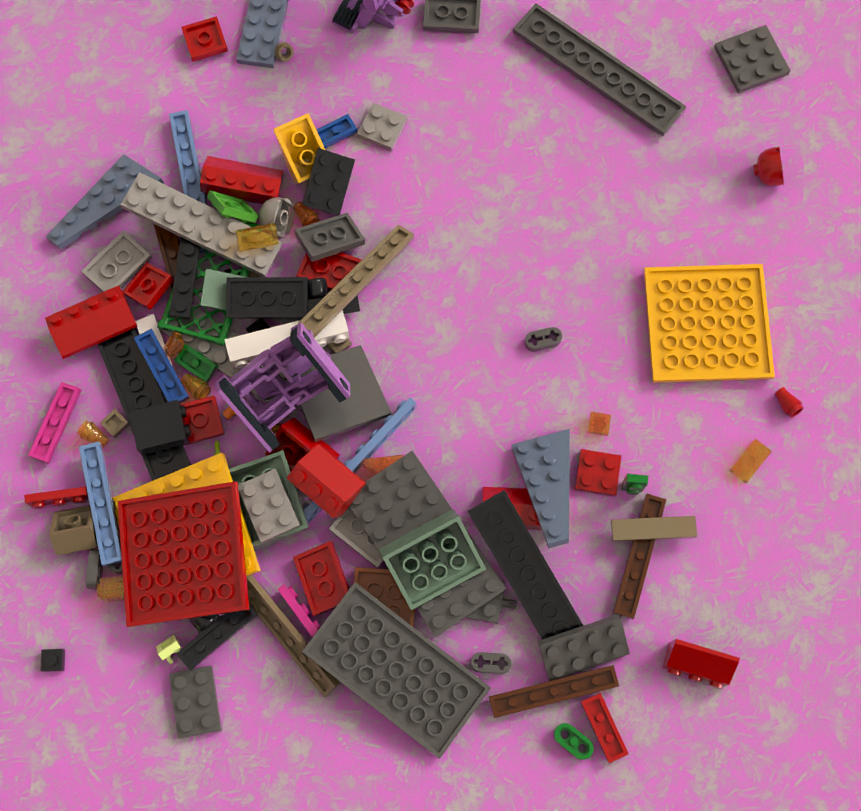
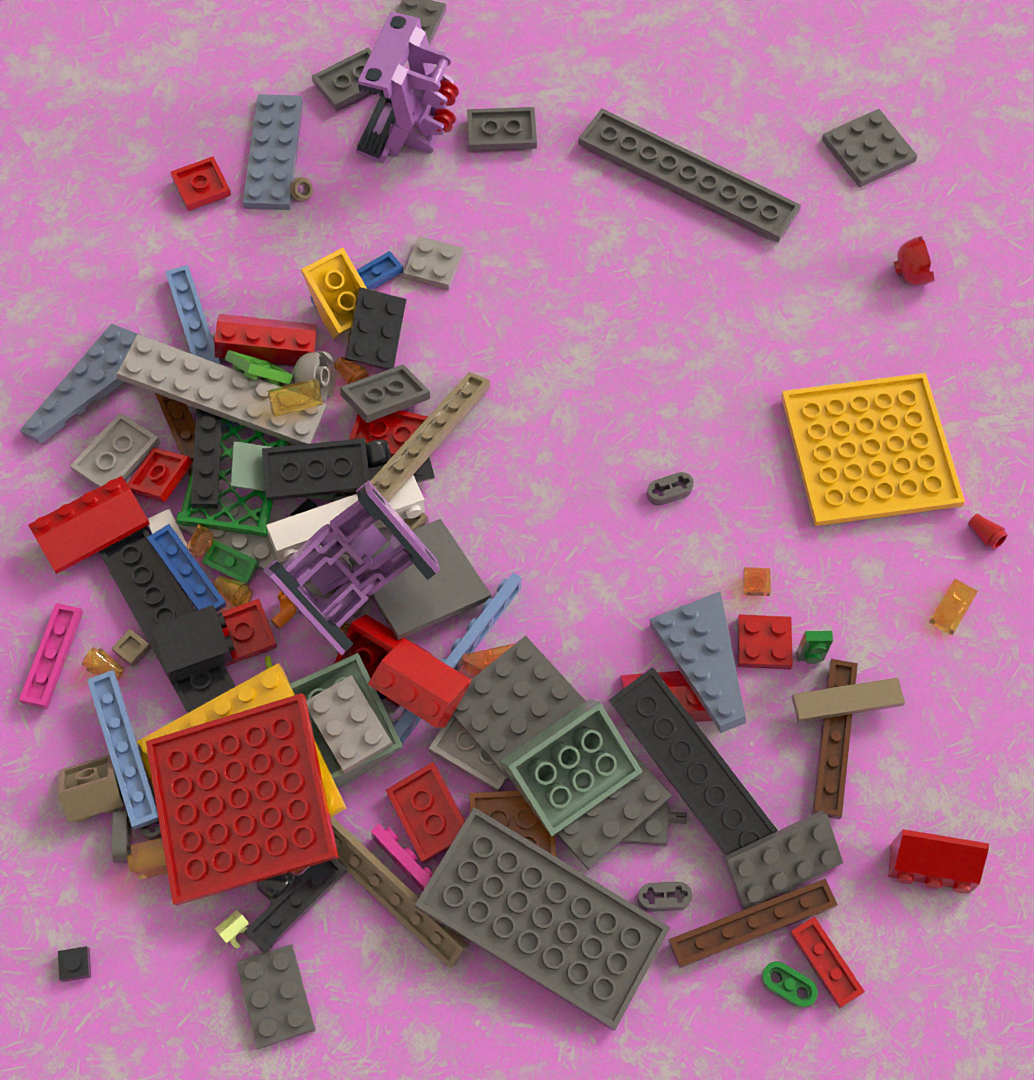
camera: 10 degrees left, 10 degrees down
(57, 497) = (63, 749): red plate -> none

